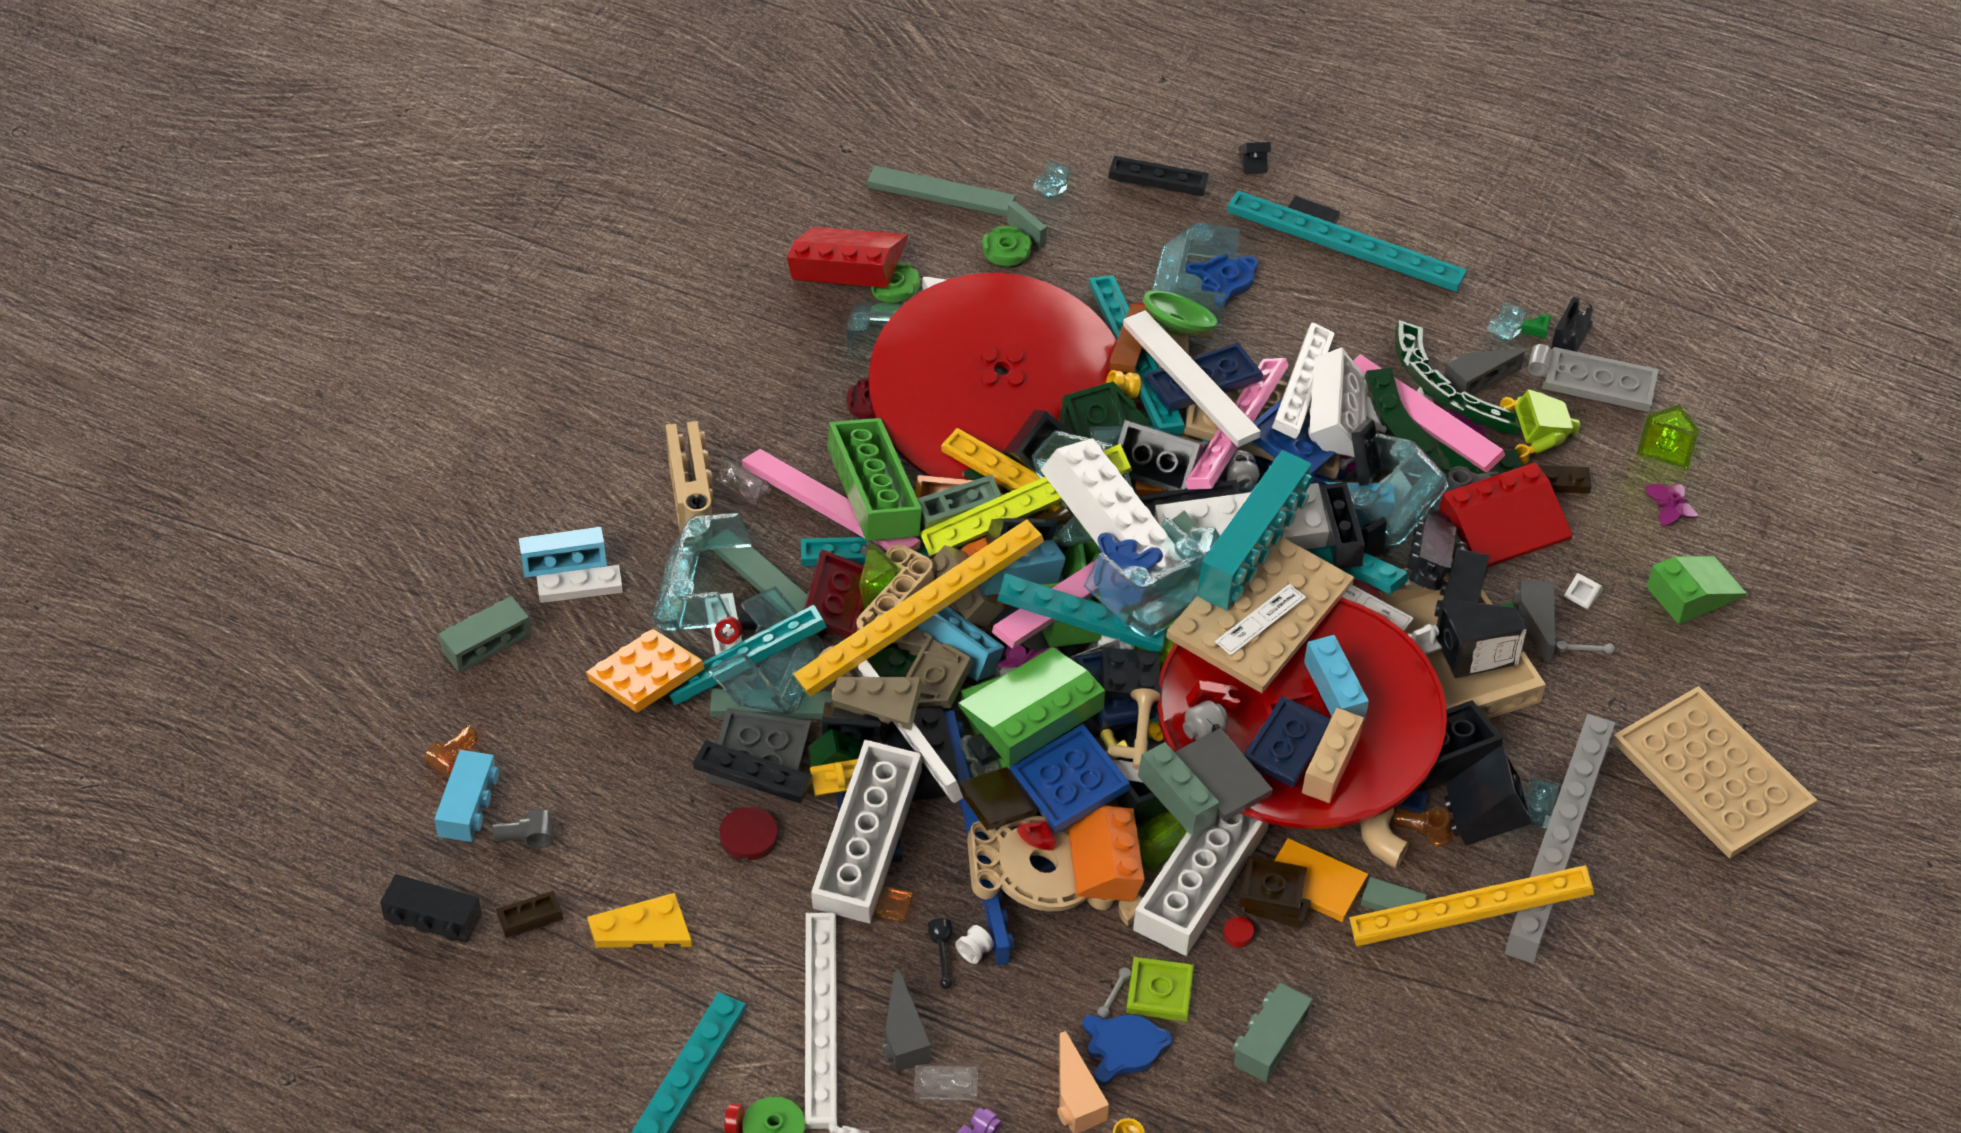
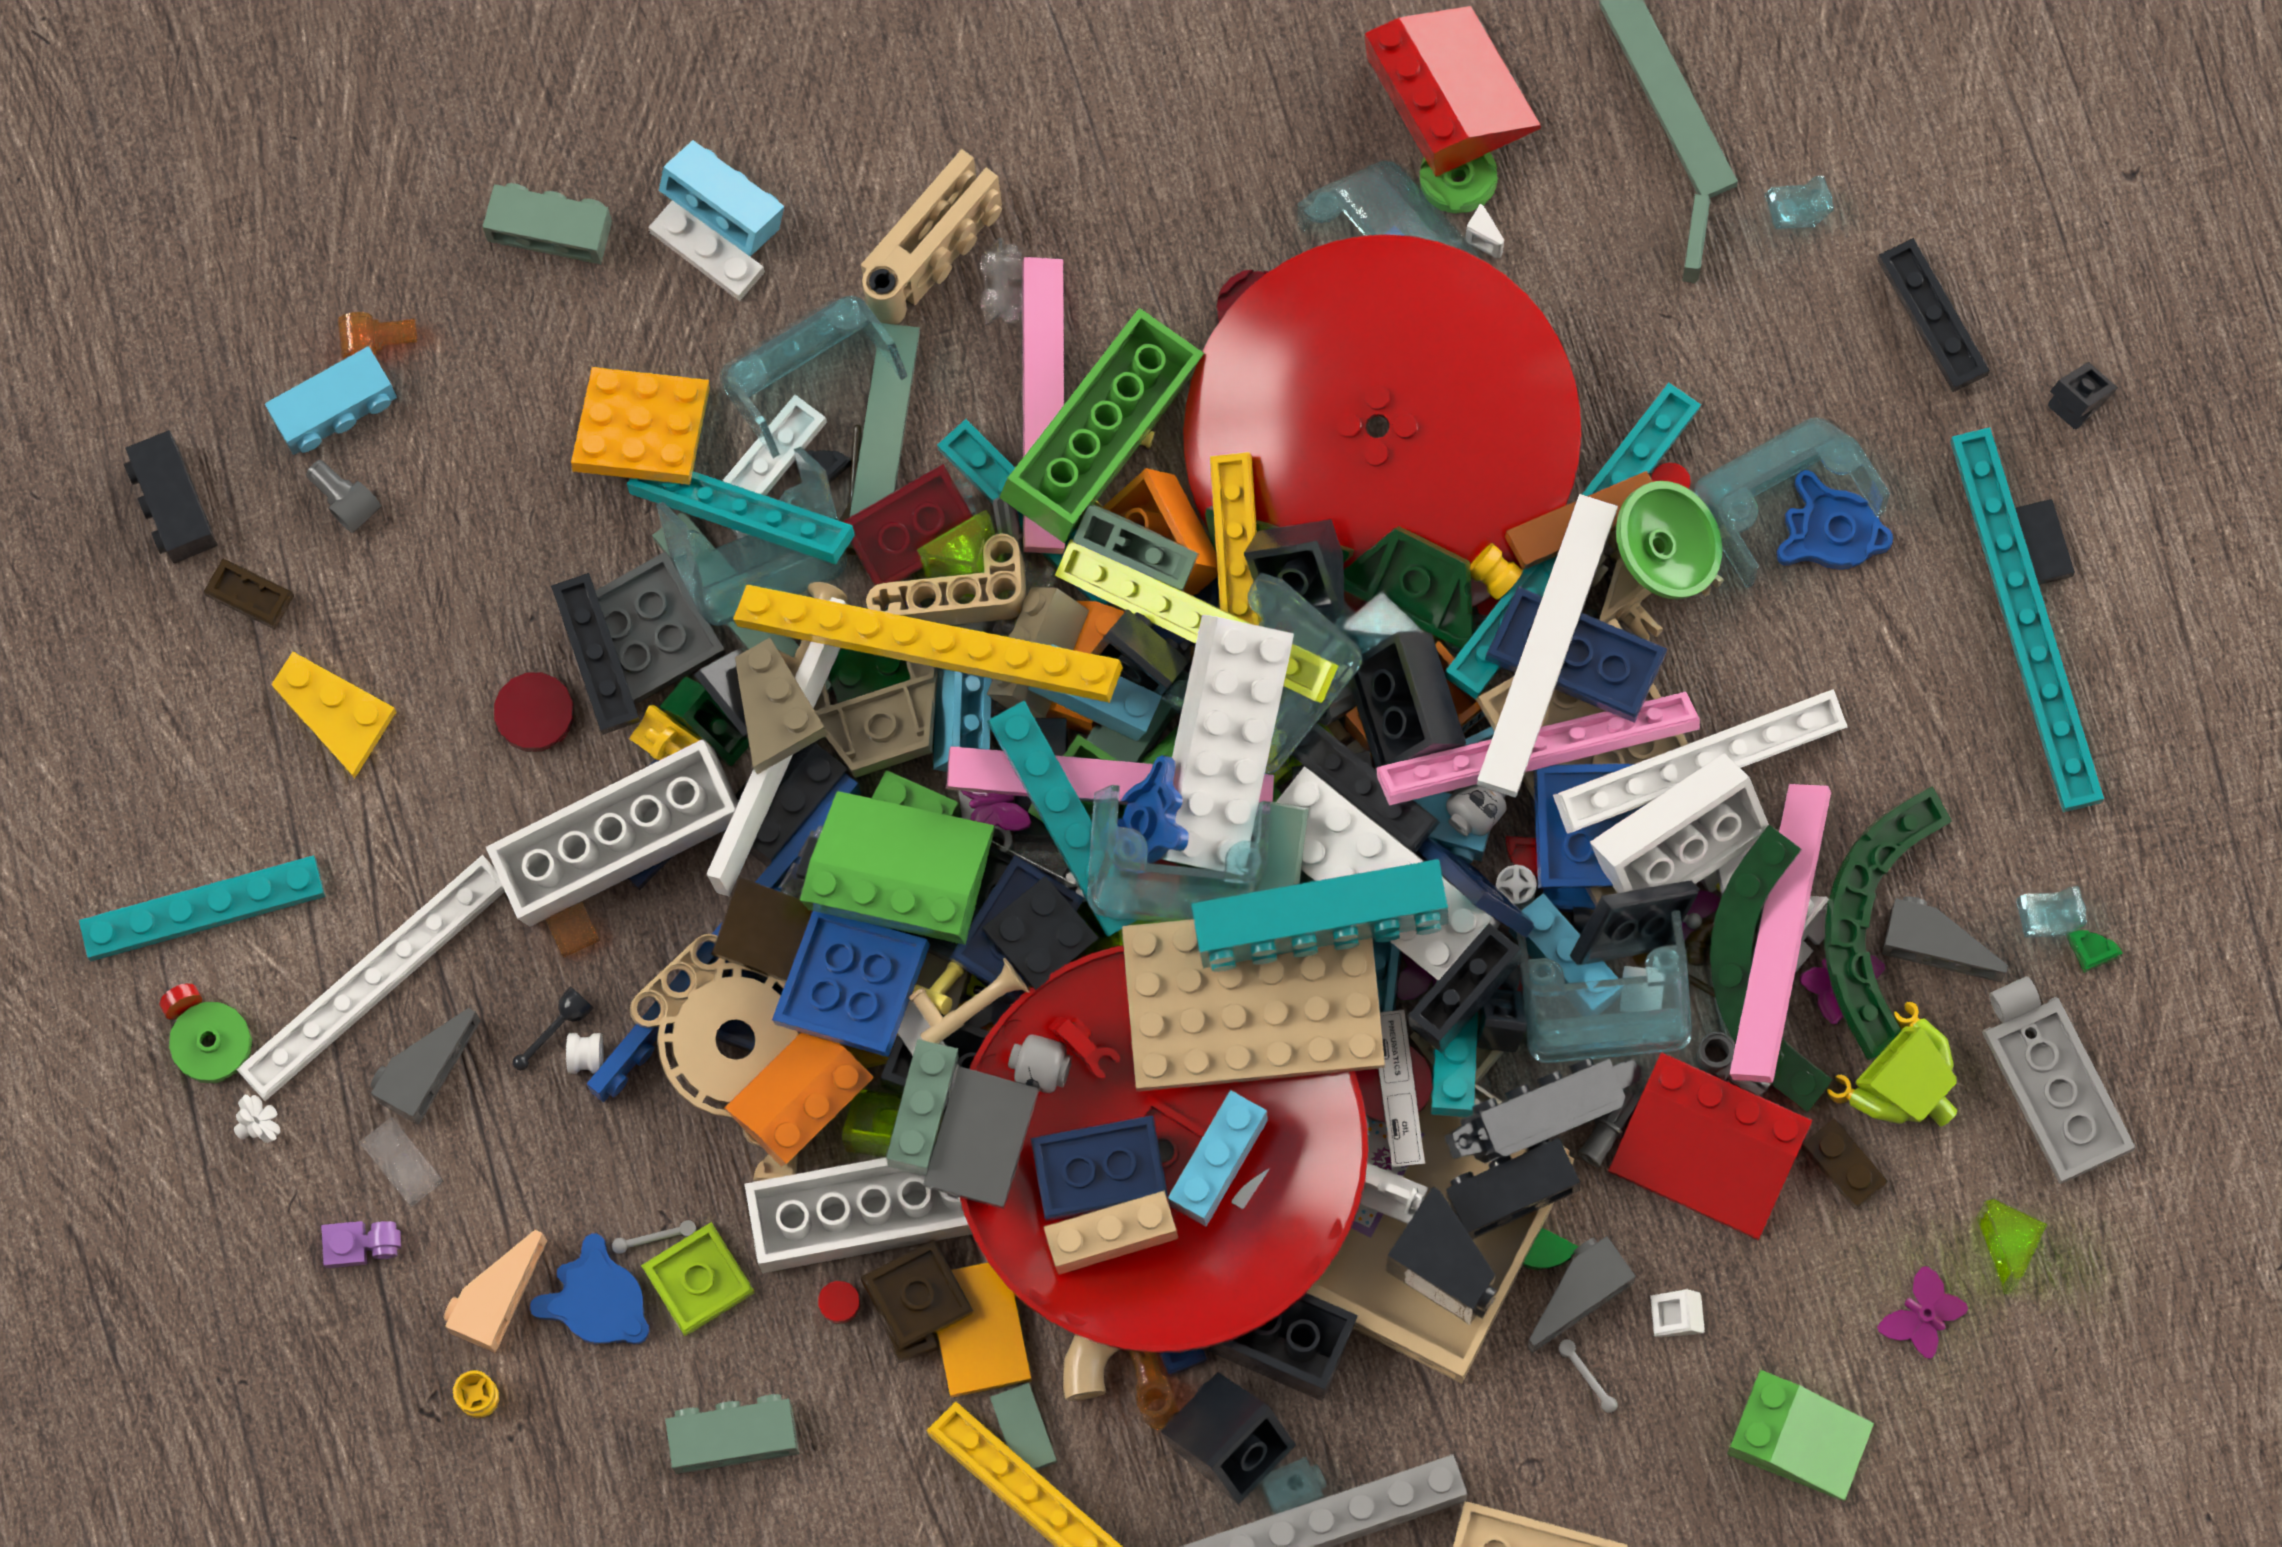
camera: 55 degrees right, 25 degrees up
(721, 636) = (756, 464): red bush -> none
(1006, 246) = (1645, 227): bright green plate -> none
(1037, 835) = (758, 1007): red tile -> none
(1206, 538) = (1269, 875): clear light blue bracket -> none
(1260, 619) = (1222, 1013): white sticker -> none
(1572, 327) = (2120, 995): black hinge -> none

